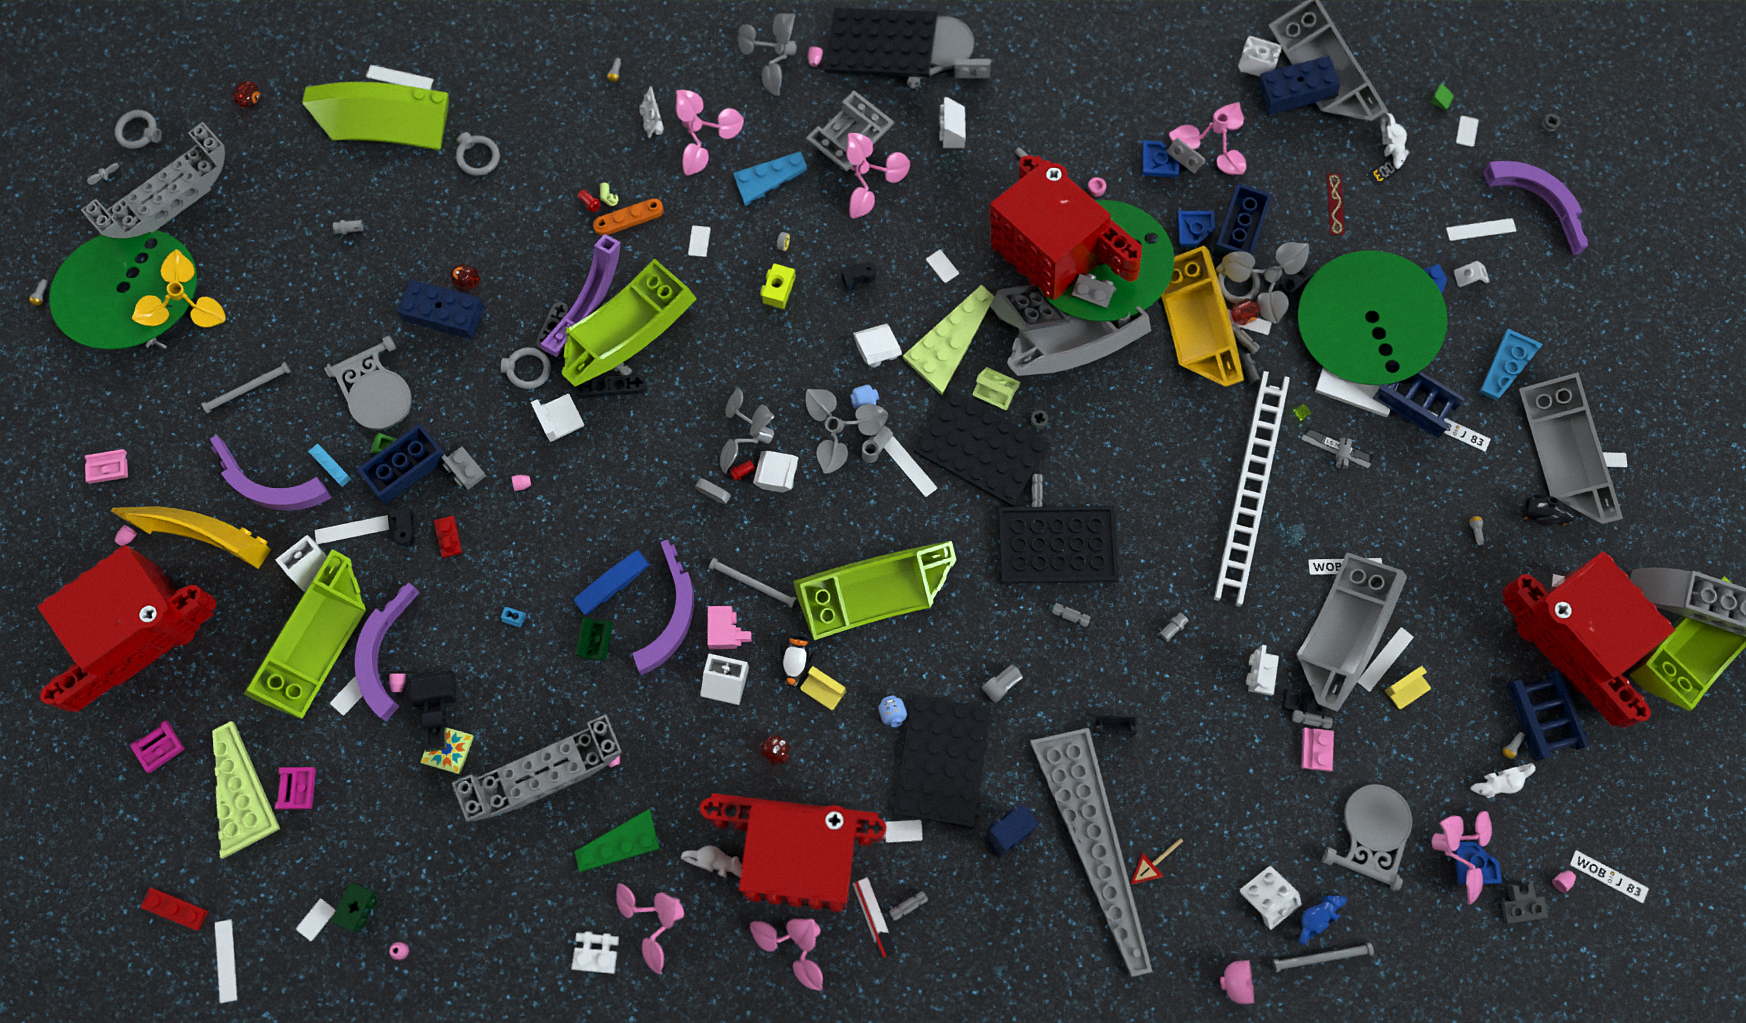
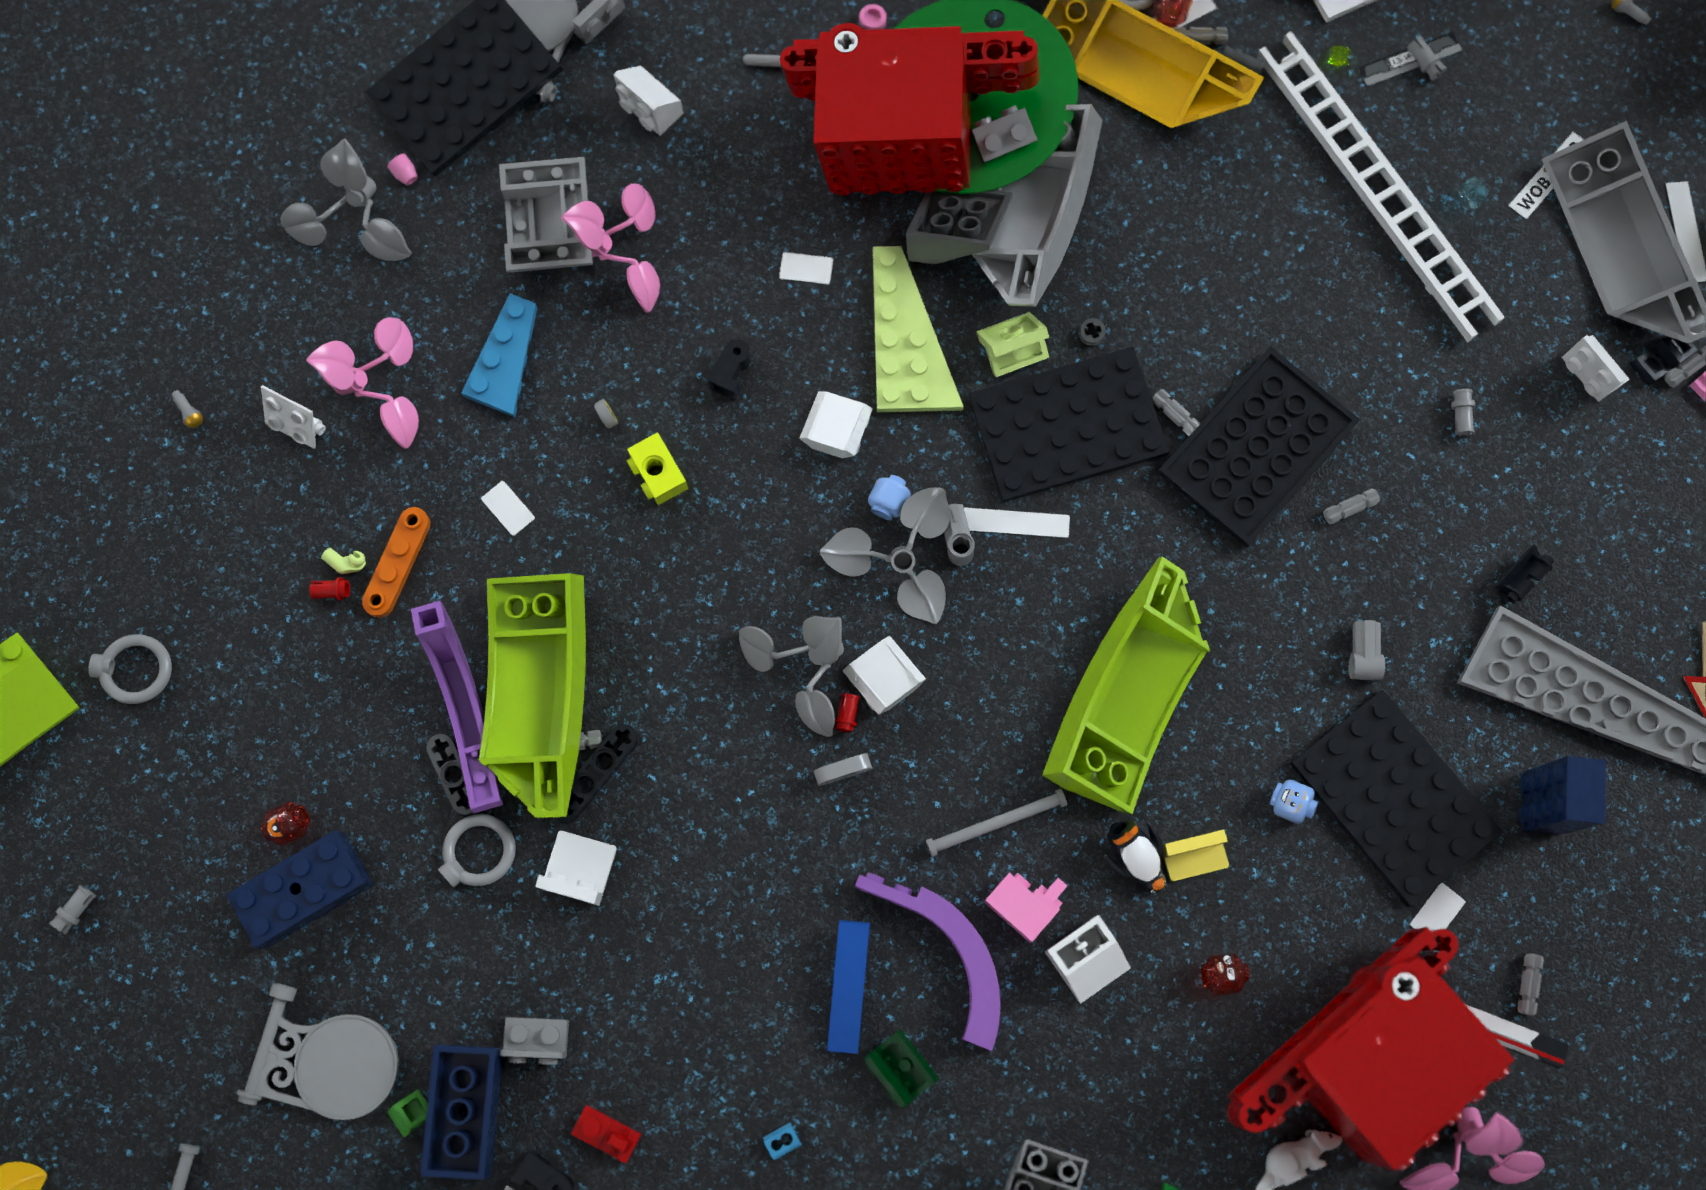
camera: 45 degrees left, 5 degrees up
(520, 482) = (619, 985): bright pink hose -> none

